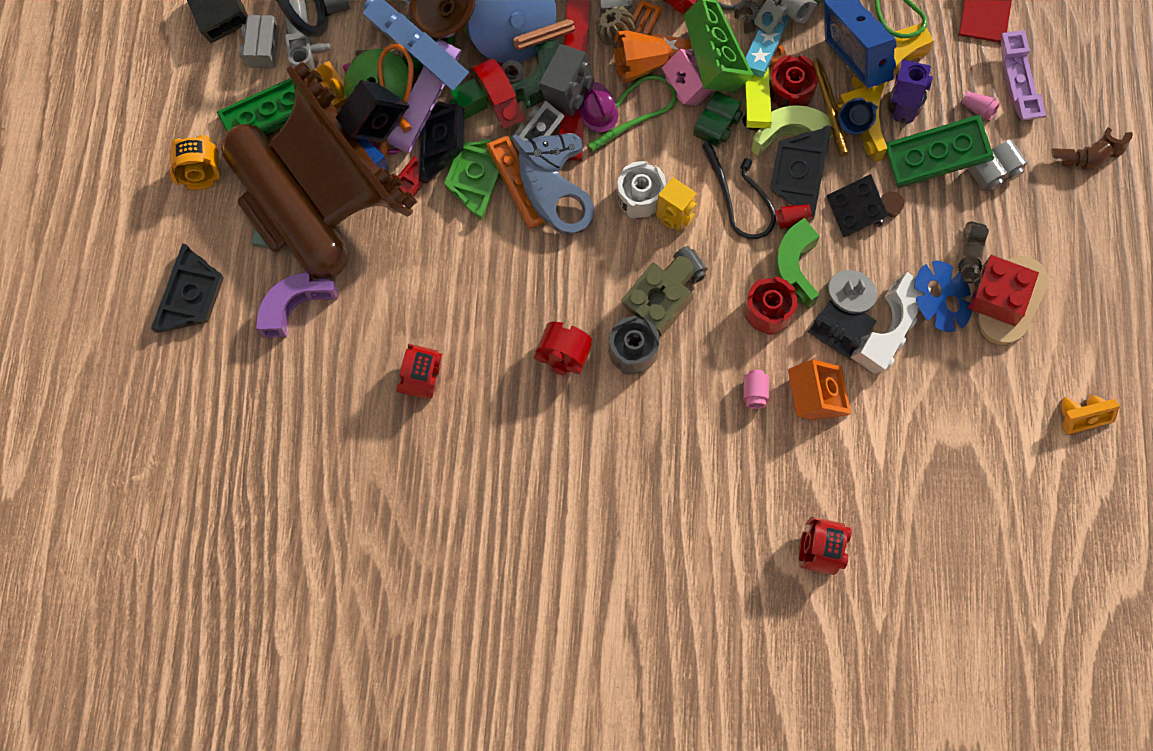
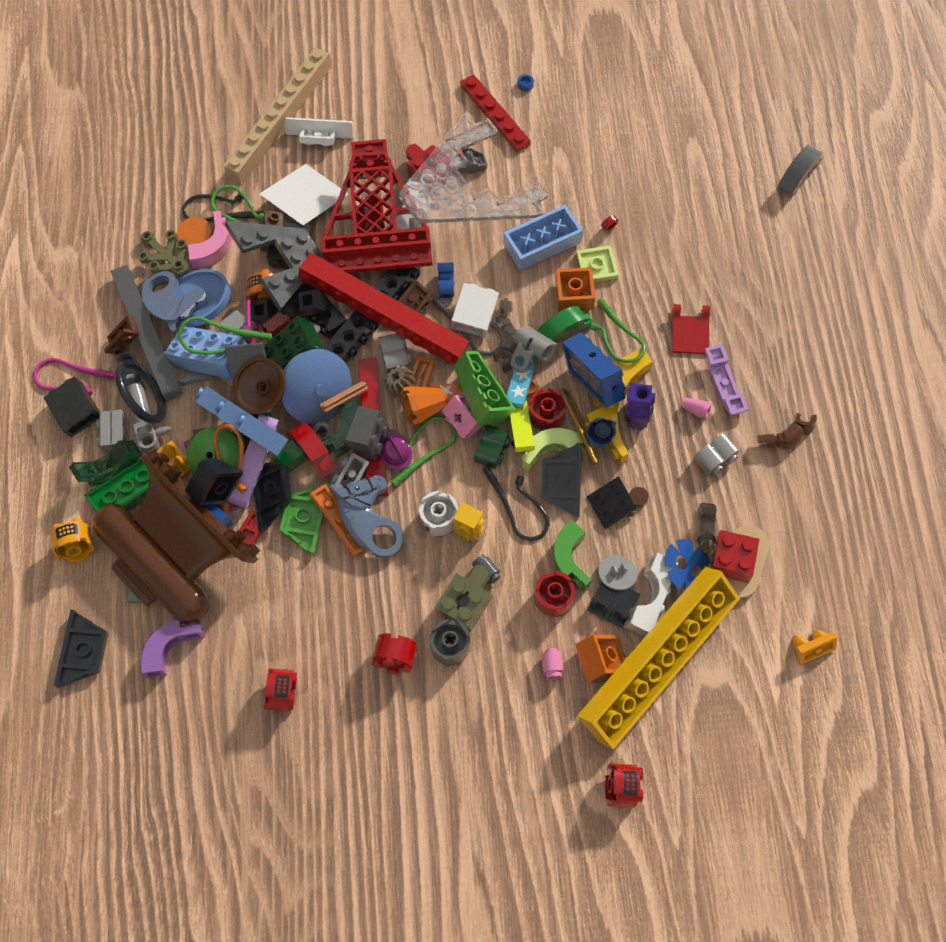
camera: 10 degrees left, 5 degrees down
(238, 85) = (100, 470): none -> clear green arch
(790, 215) = (560, 518): red cone -> none
(891, 398) = (658, 657): none -> yellow brick
(939, 151) = (669, 450): green tile -> none

